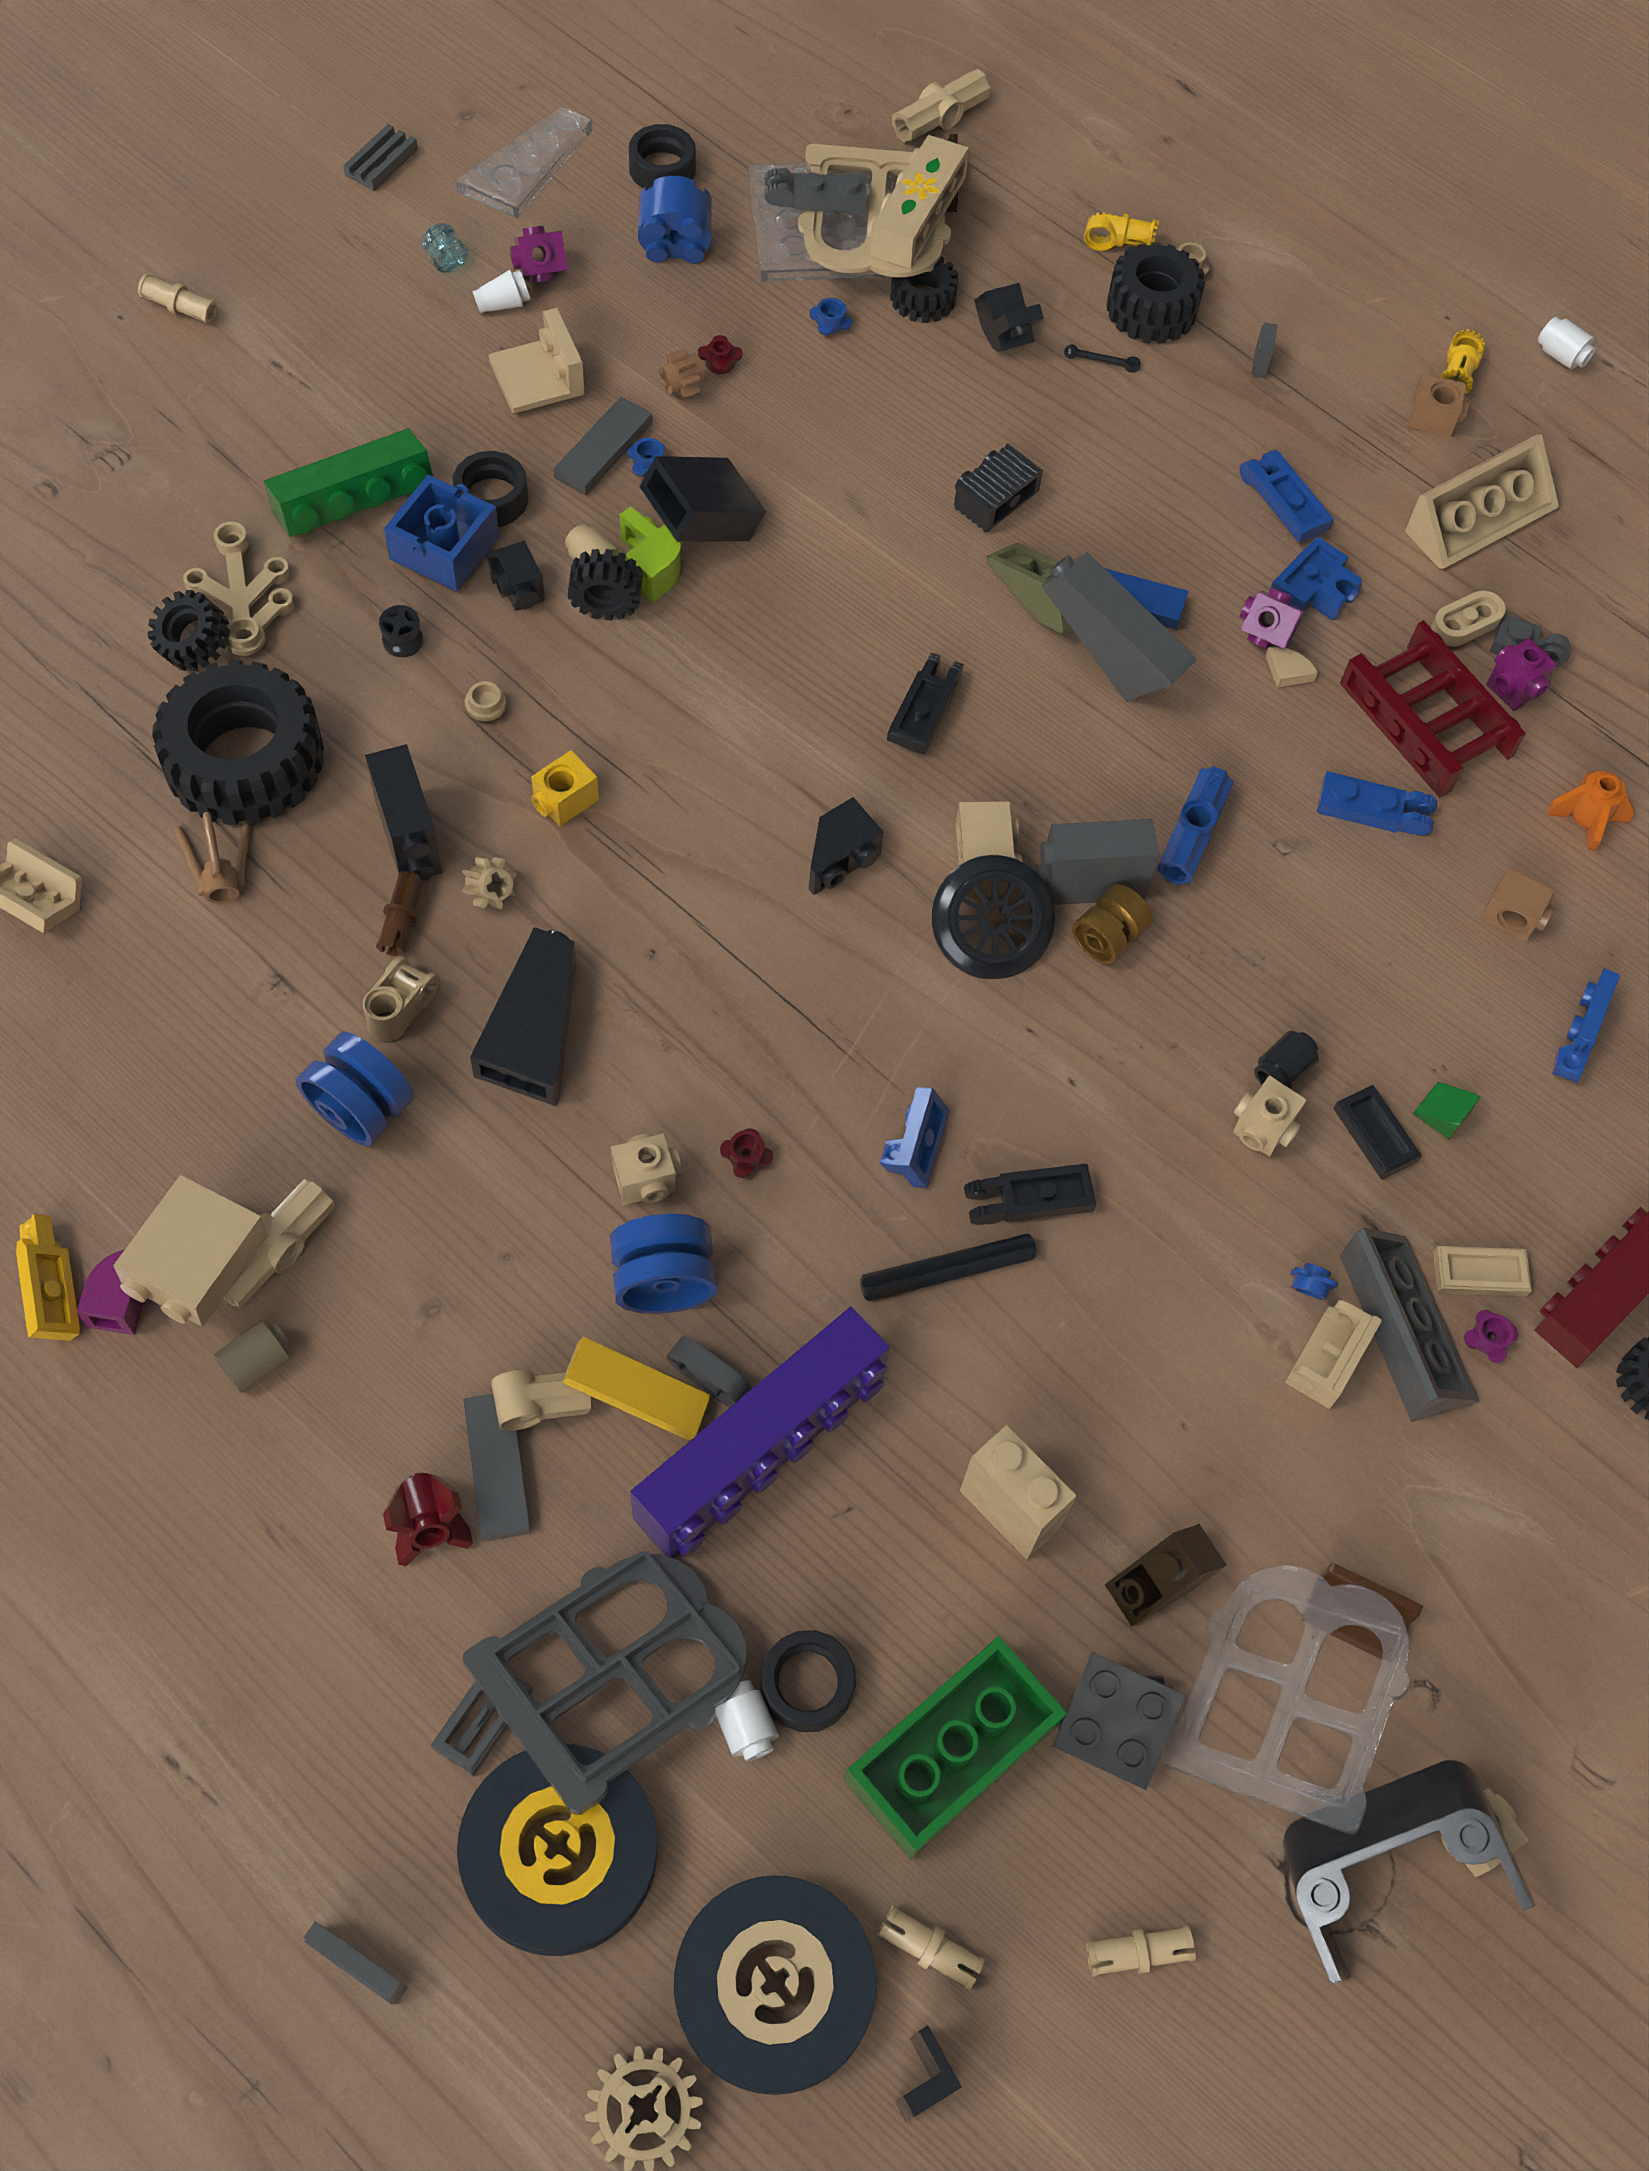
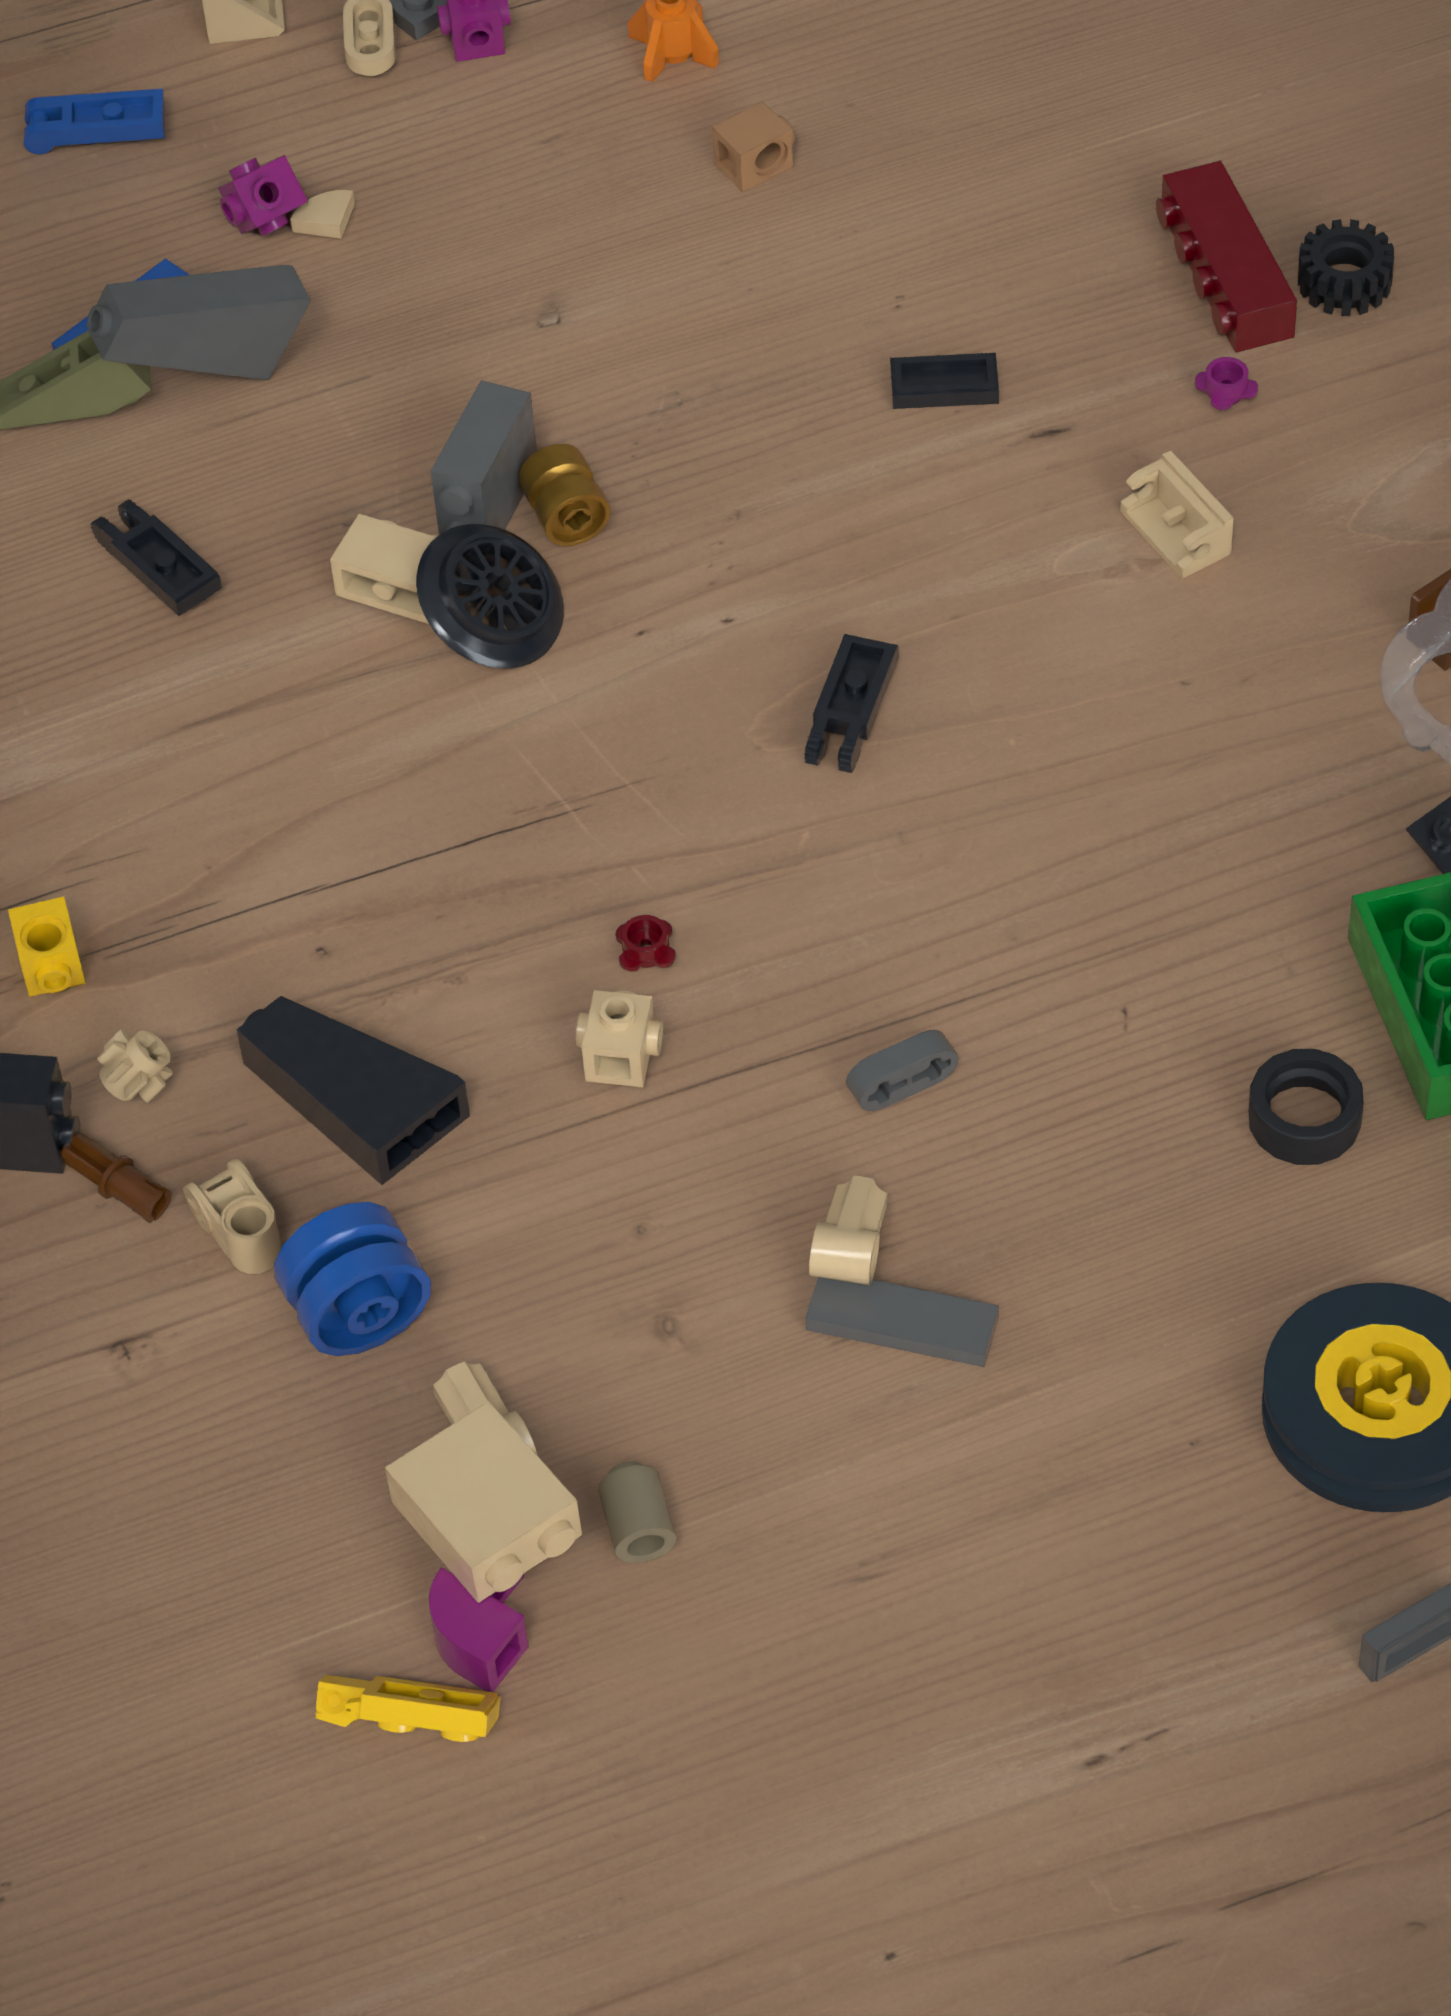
camera: 55 degrees left, 10 degrees down
(425, 1516) = (930, 1392): dark red brick -> none
(456, 1754) = (1221, 1469): dark grey tile -> none
(533, 1722) = (1235, 1358): dark grey window -> none
(636, 1388) = (889, 1137): yellow tile -> none
(663, 1263) = (756, 1050): blue wheel -> none
(747, 1723) = (1323, 1176): white brick -> none
(760, 1435) = (1014, 1034): dark purple brick -> none
(843, 843) = (297, 704): black slope -> none
(918, 1149) = (739, 789): blue hinge -> none
(947, 1267) = (892, 811): black axle -> none
(1017, 1492) = (1201, 825): tan brick -> none
(1165, 1573) = (1346, 753): dark brown slope -> none
(1189, 841) = (474, 359): blue piece -> none
(1268, 1117) = (882, 452): tan brick -> none
(1288, 1059) = (822, 416): black brick -> none
(1313, 1281) = (1089, 499): blue plate -> none
(1319, 577) = (229, 139): blue plate -> none
(1376, 804) = (550, 215): blue hinge -> none
(1411, 1328) = (1214, 451): dark grey slope -> none
(1418, 739) = (470, 145): dark red fence -> none
(1446, 1108) = (953, 309): green slope -> none
(1482, 1271) = (1150, 363): tan tile -> none
(1584, 1030) = (929, 151): blue hinge -> none

